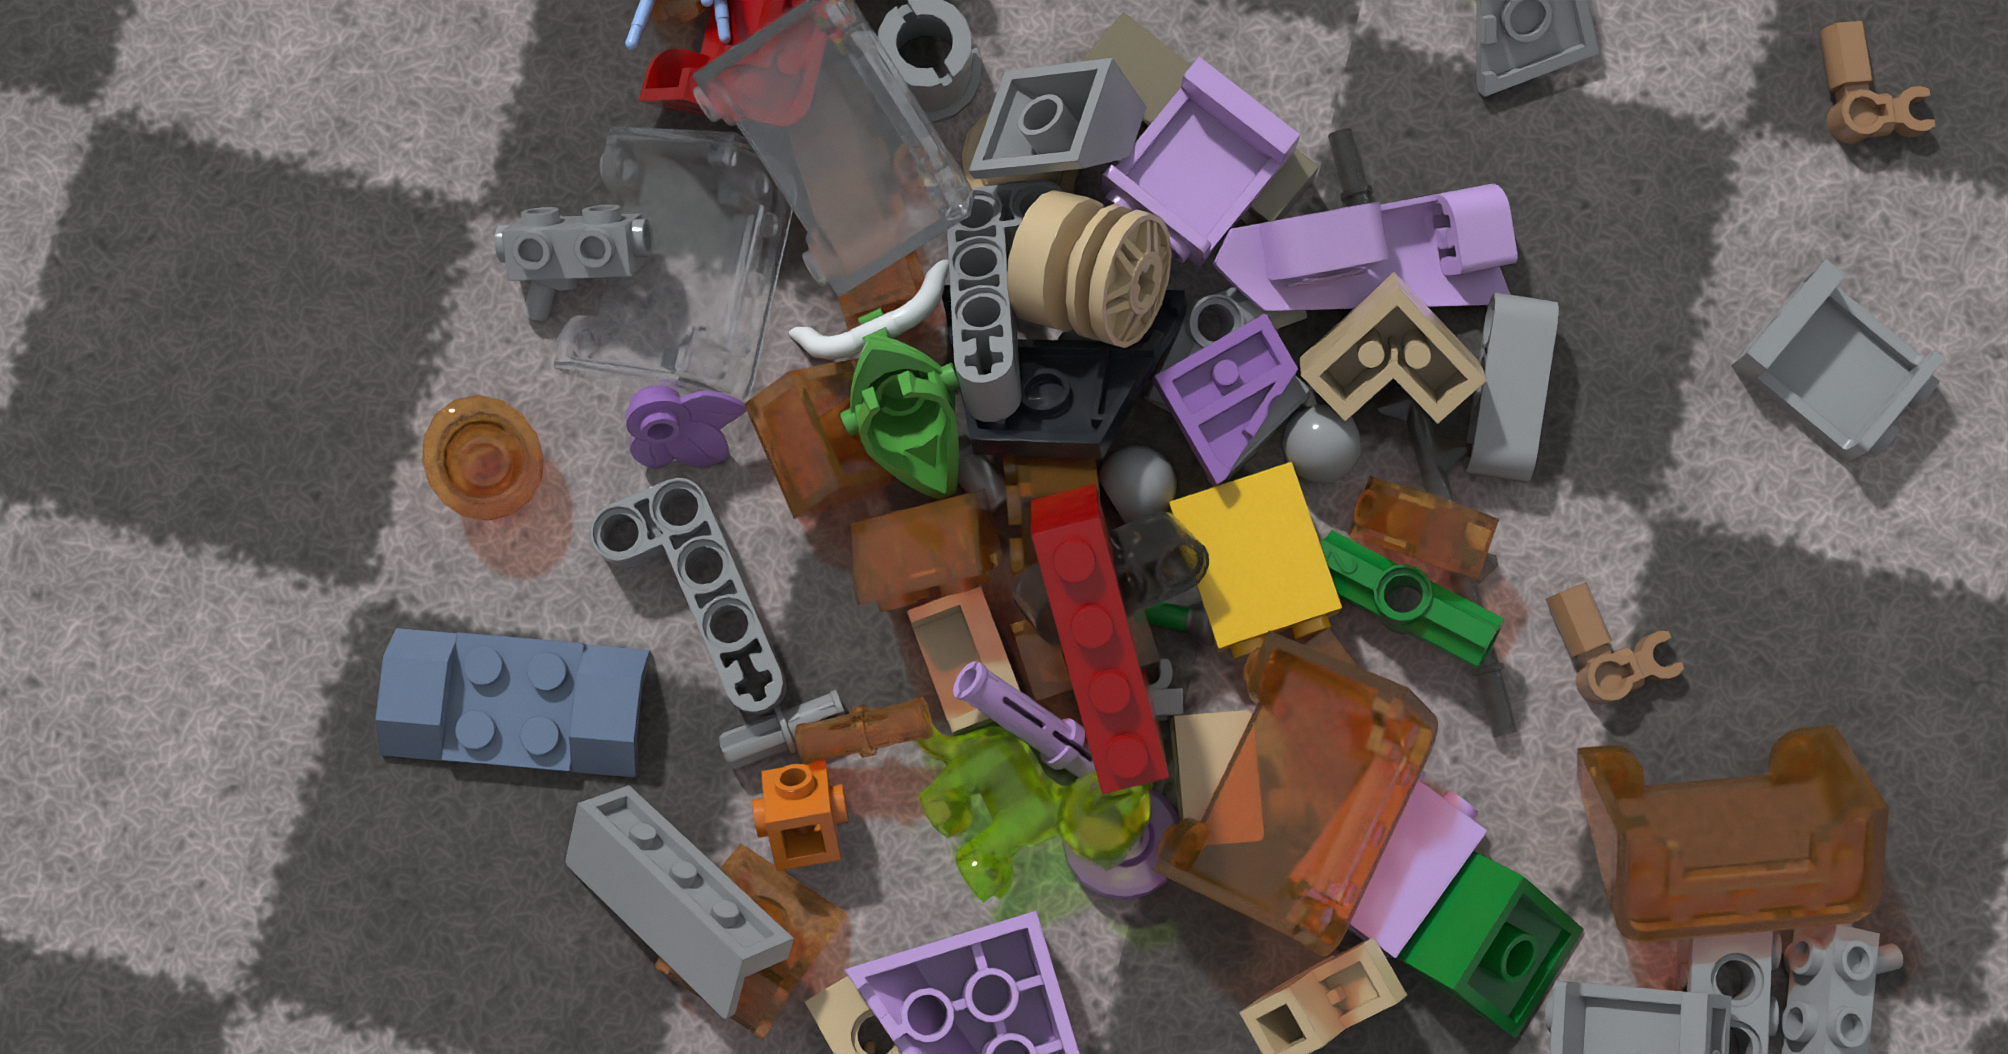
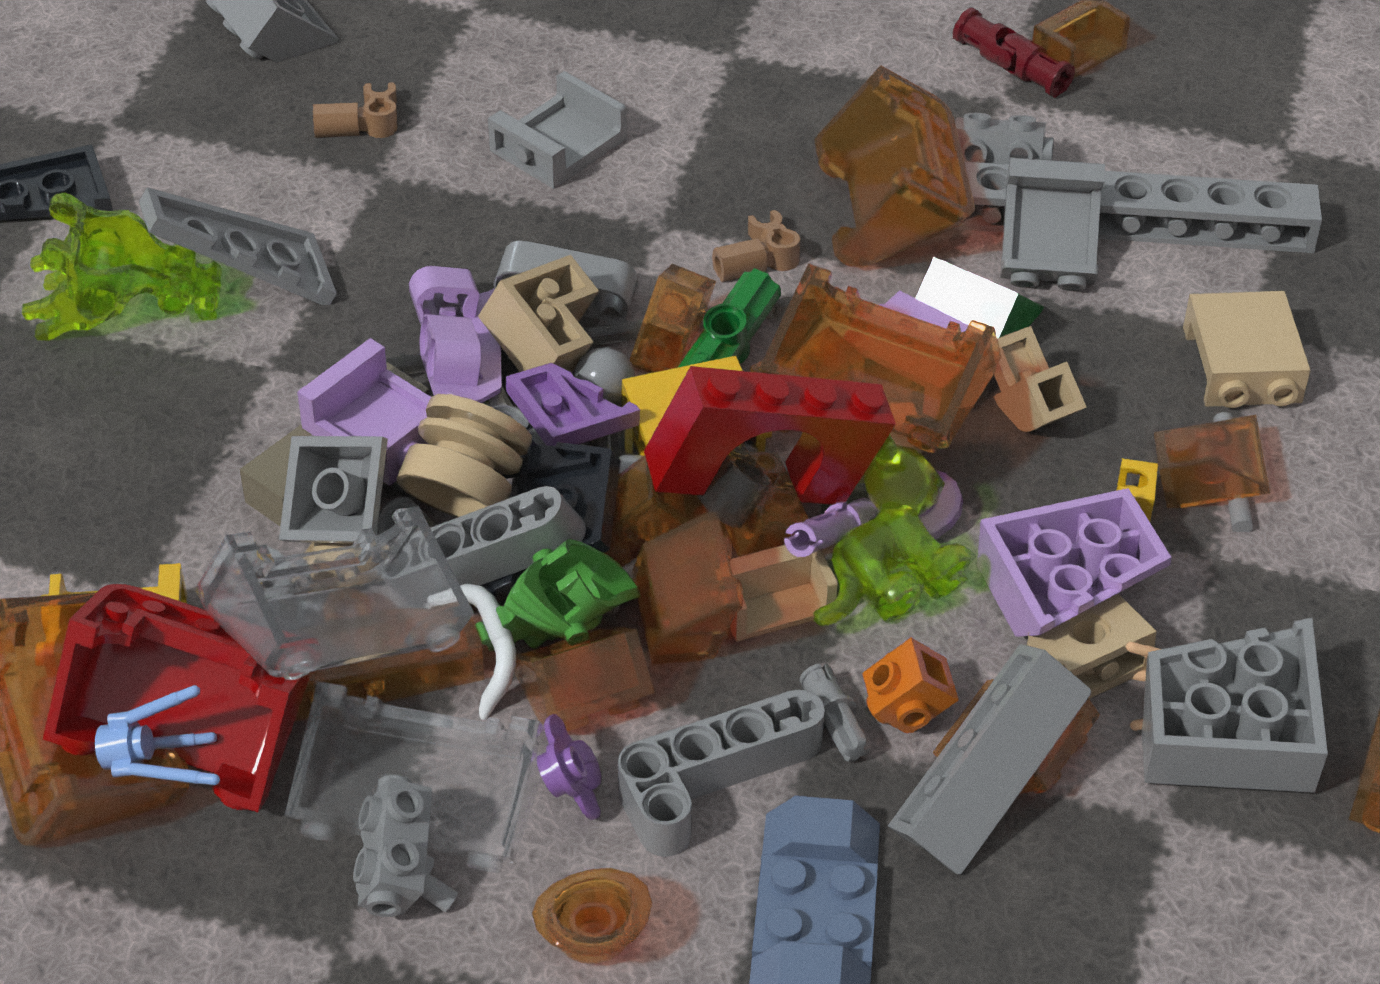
camera: 90 degrees left, 35 degrees down
(863, 731) = (839, 635): clear orange pin -> none

